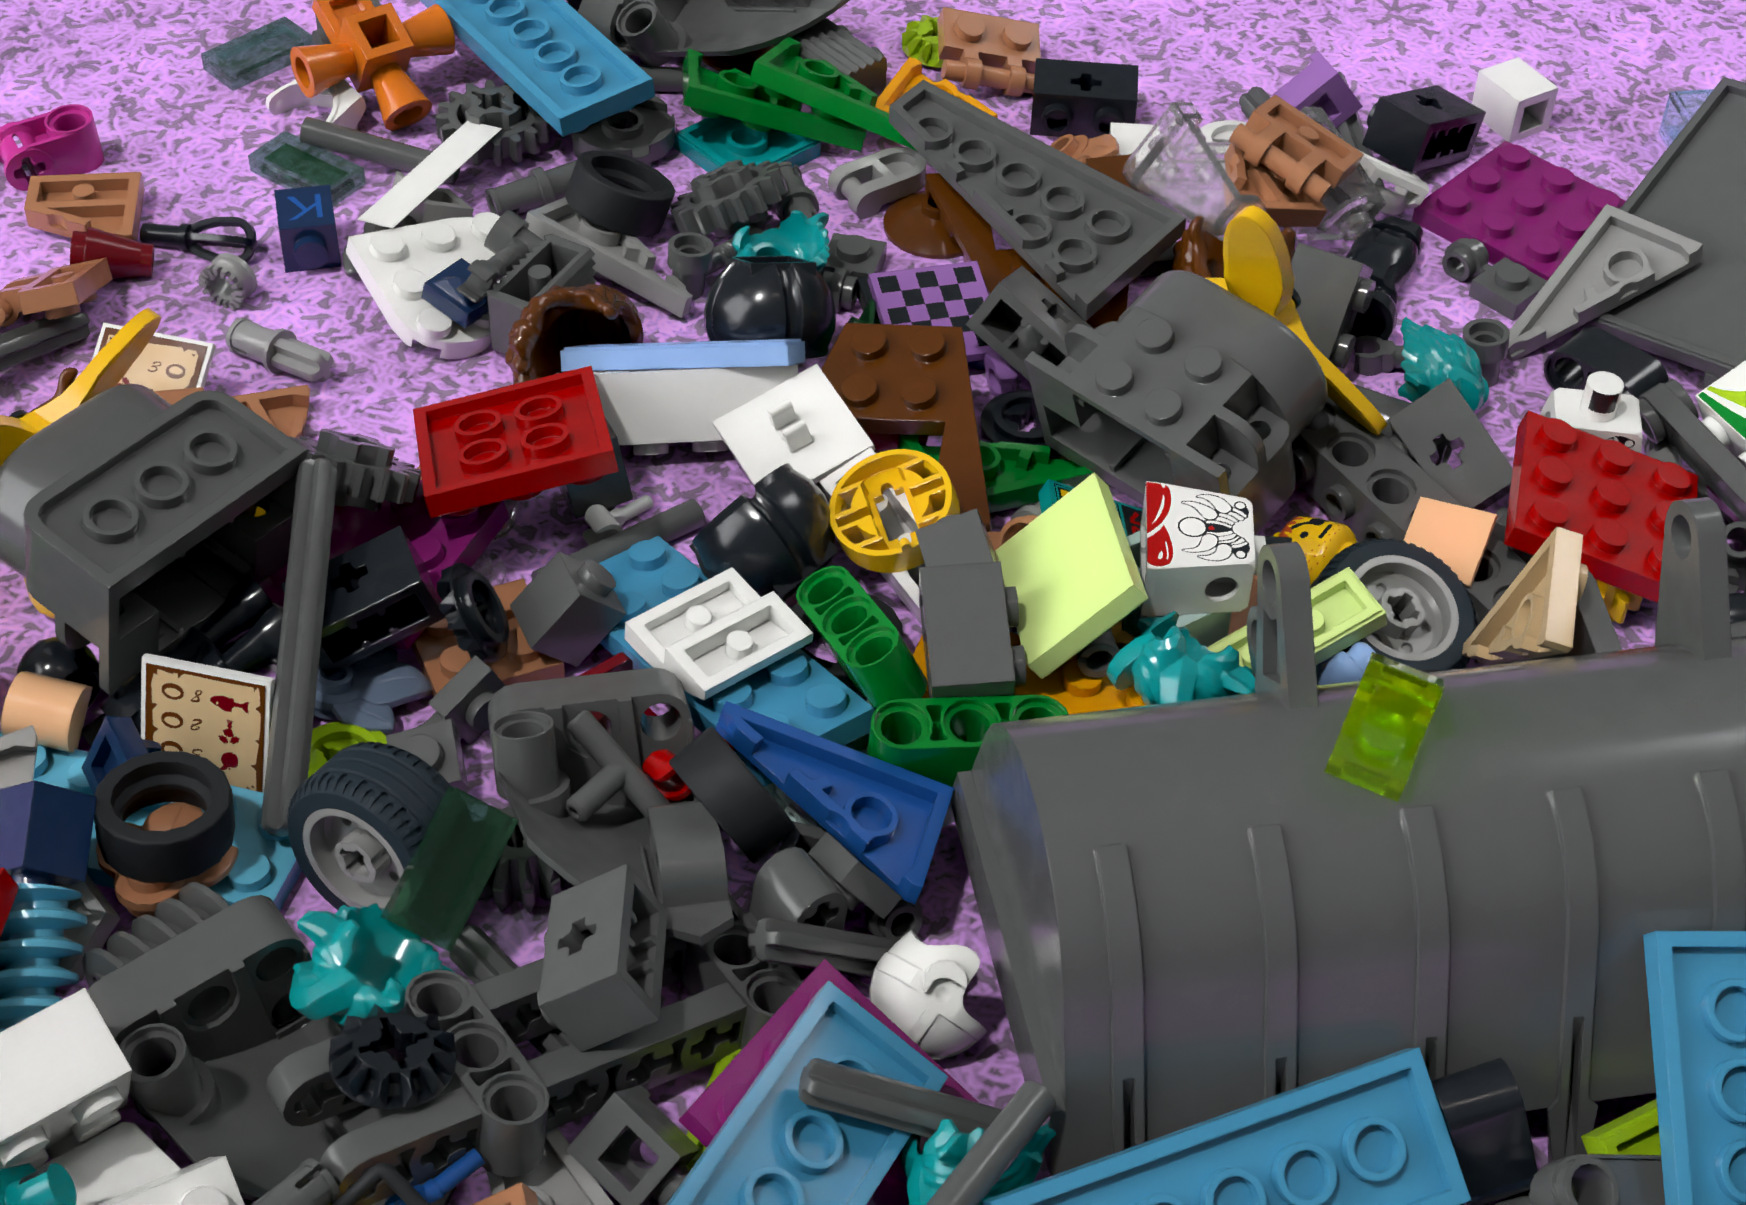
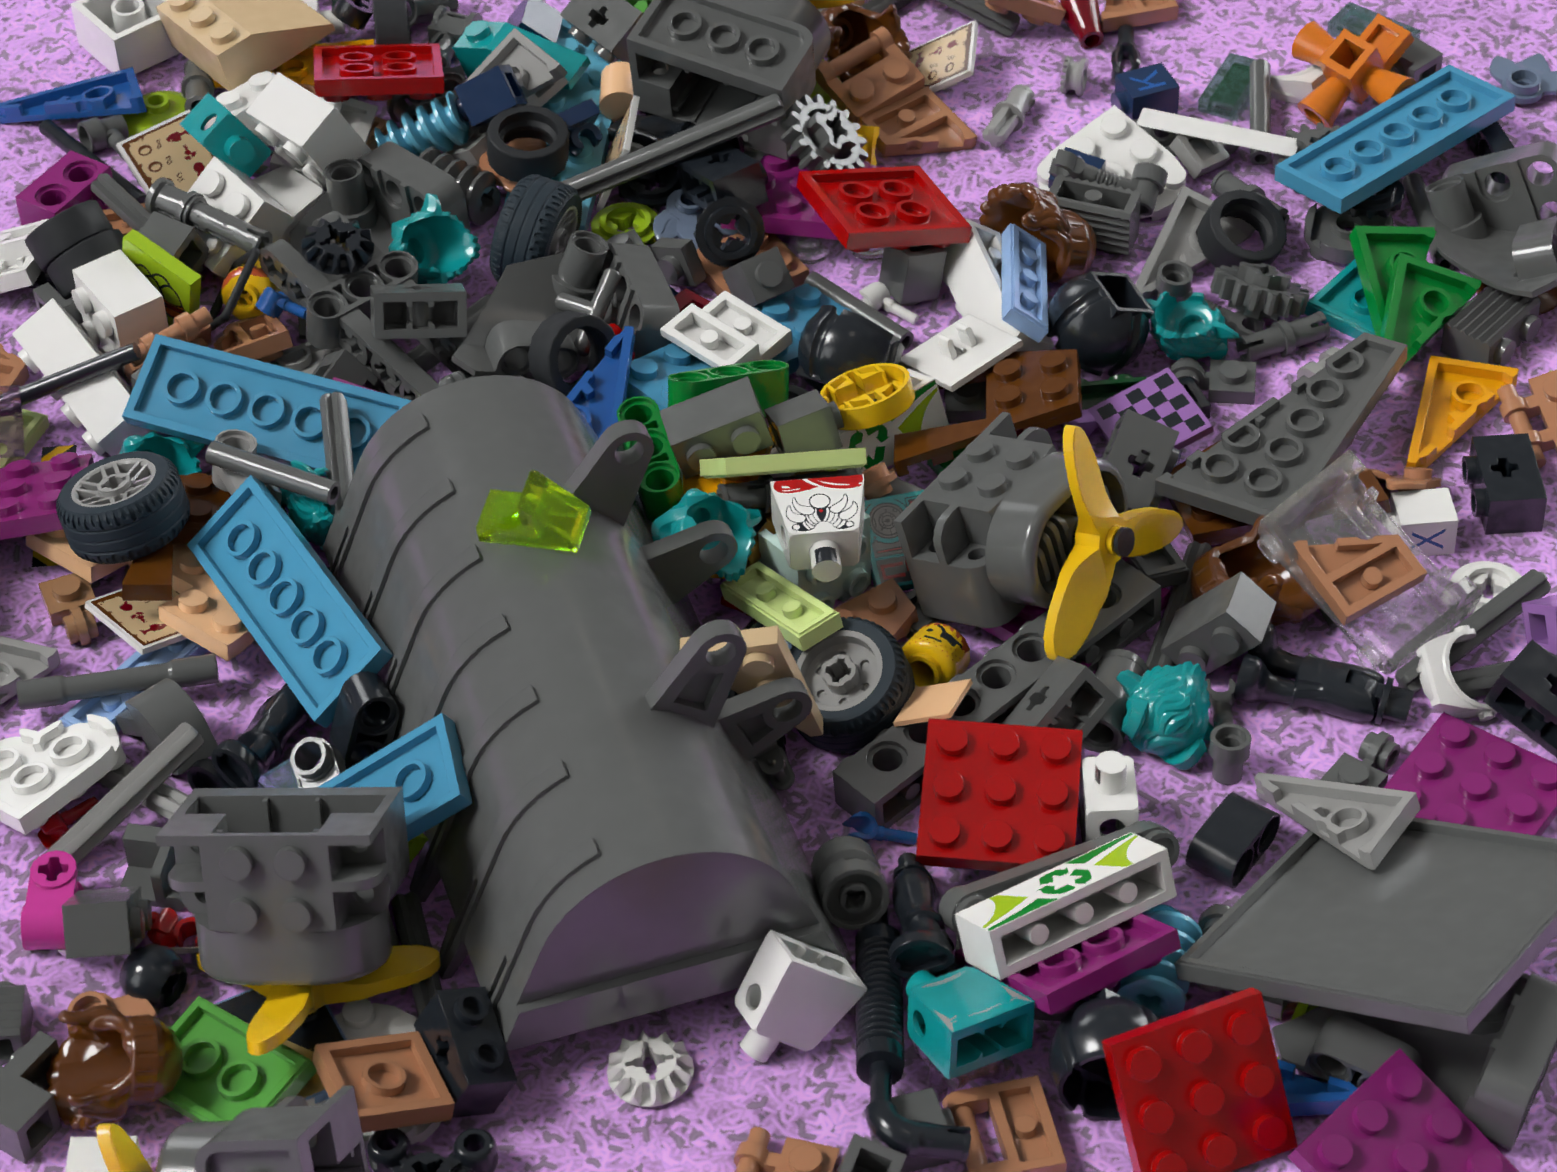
camera: 85 degrees right, 0 degrees up
(449, 868) = (490, 250): clear green tile -> none
(1295, 148) = (1412, 579): nougat plate -> none

